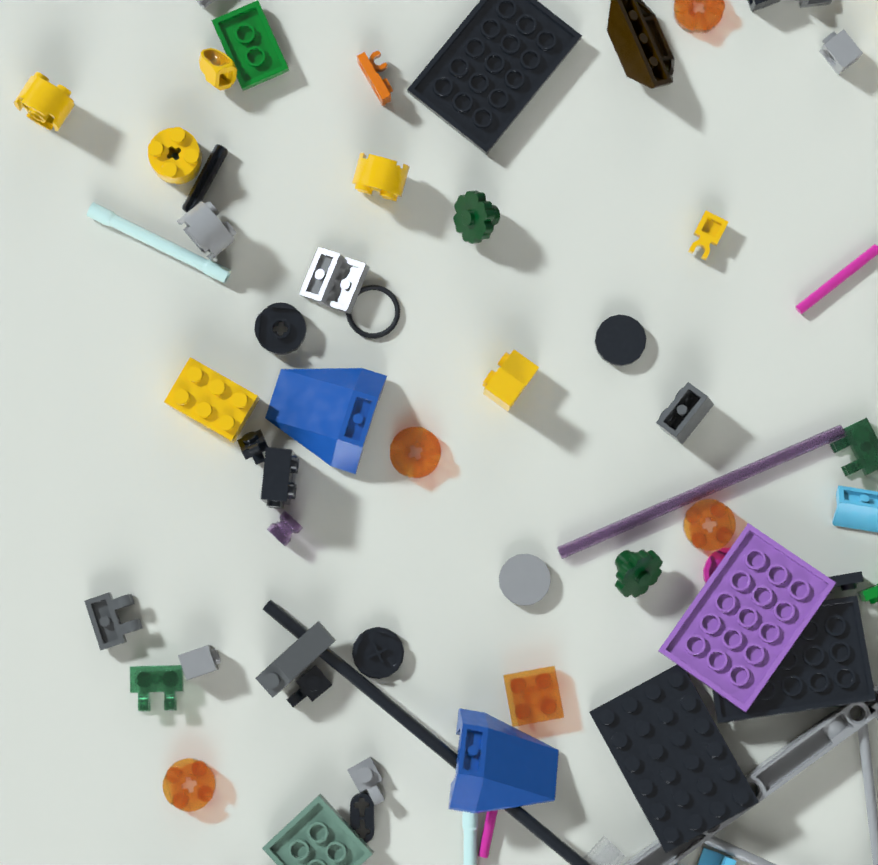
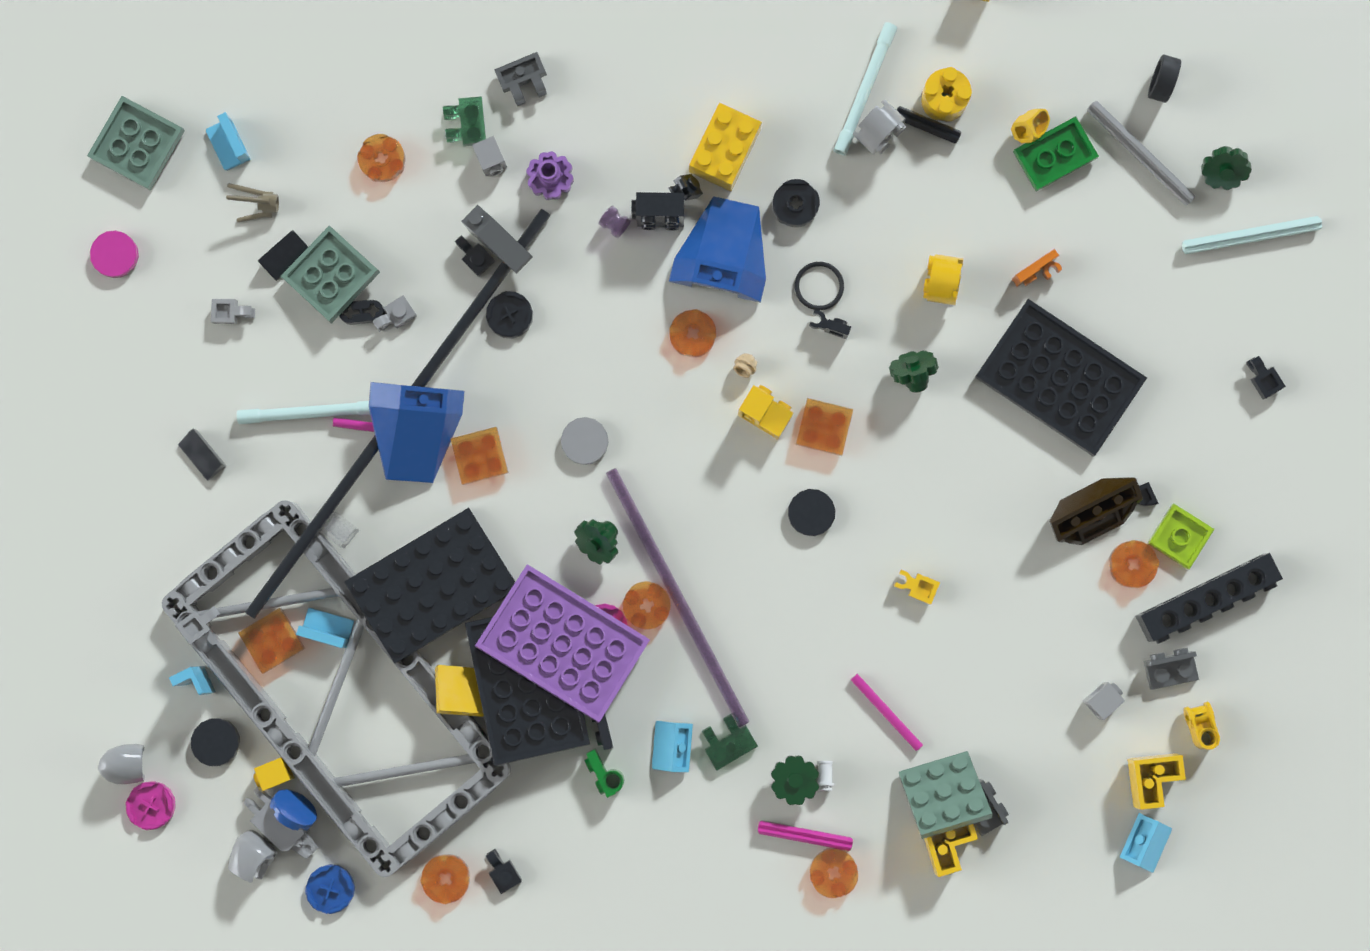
camera: 95 degrees right, 0 degrees up
(226, 596) = (550, 175): none -> medium lavender plant
(334, 280) = (844, 248): slope -> none
(421, 296) = (835, 327): none -> black plate
(455, 397) = (745, 365): none -> tan plate
(529, 318) = (824, 427): none -> clear orange plate
(684, 413) = (747, 574): dark grey brick -> none
(791, 735) = (457, 691): none -> yellow tile

